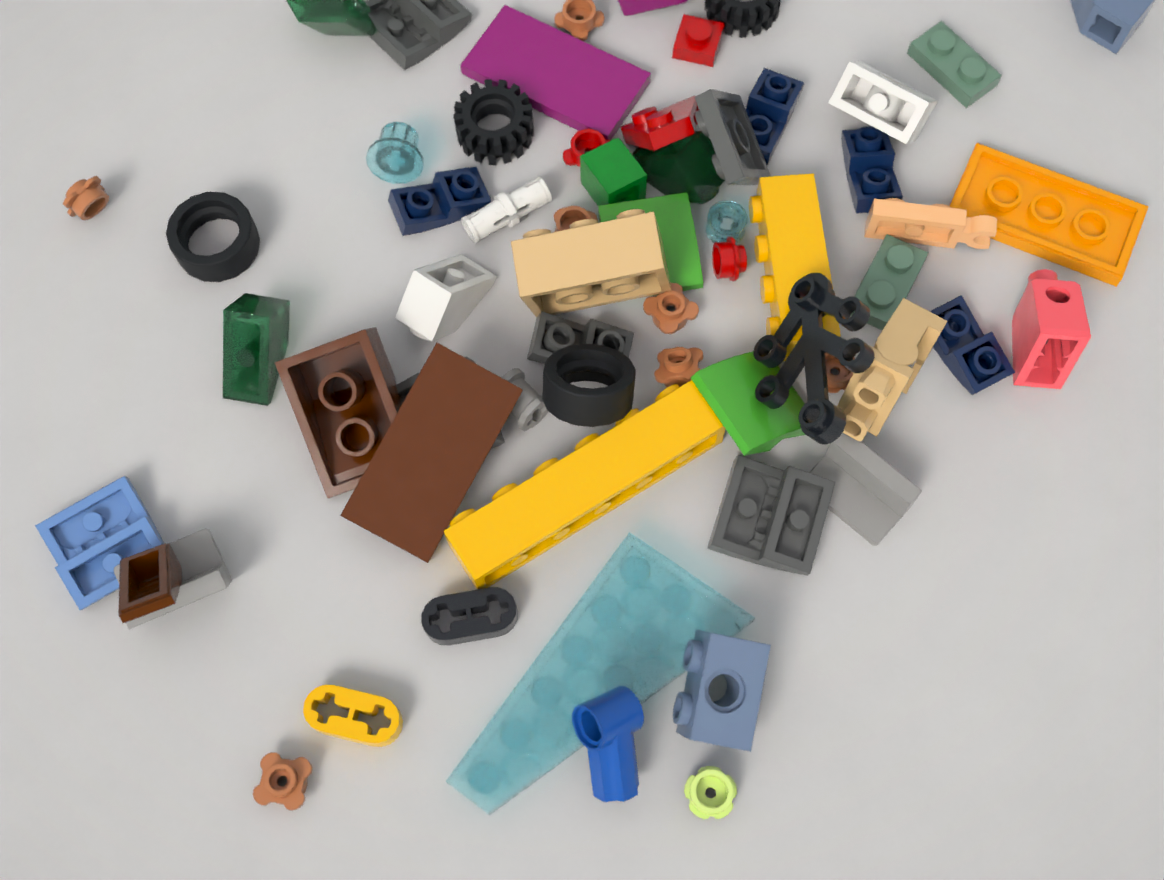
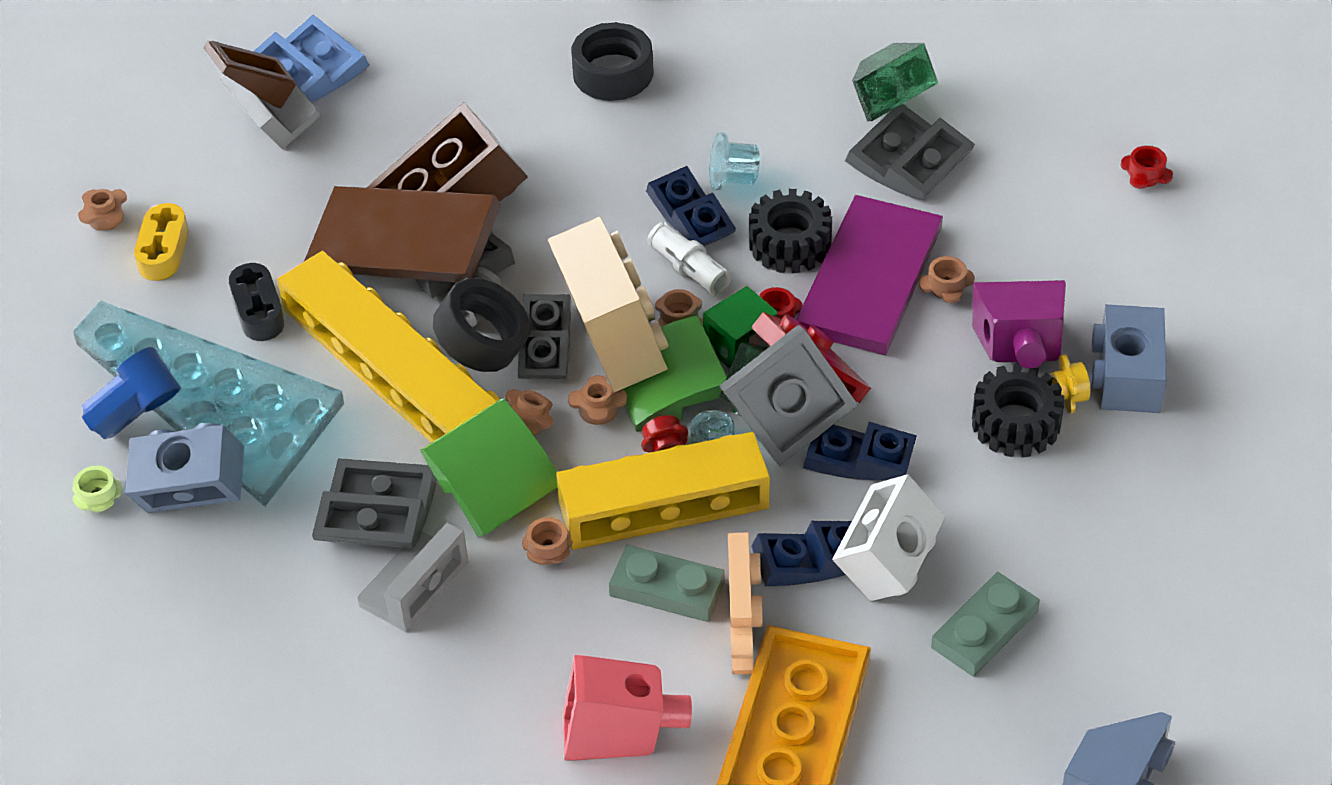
camera: 80 degrees right, 20 degrees down
(252, 341) = (510, 102): clear green slope -> none
(443, 296) = (568, 206): white slope -> none
(698, 40) = (949, 384): red plate -> none
(808, 303) = (595, 473): black plant -> none
(897, 361) = (522, 545): tan hips -> none
(966, 351) = (616, 639): dark blue slope -> none

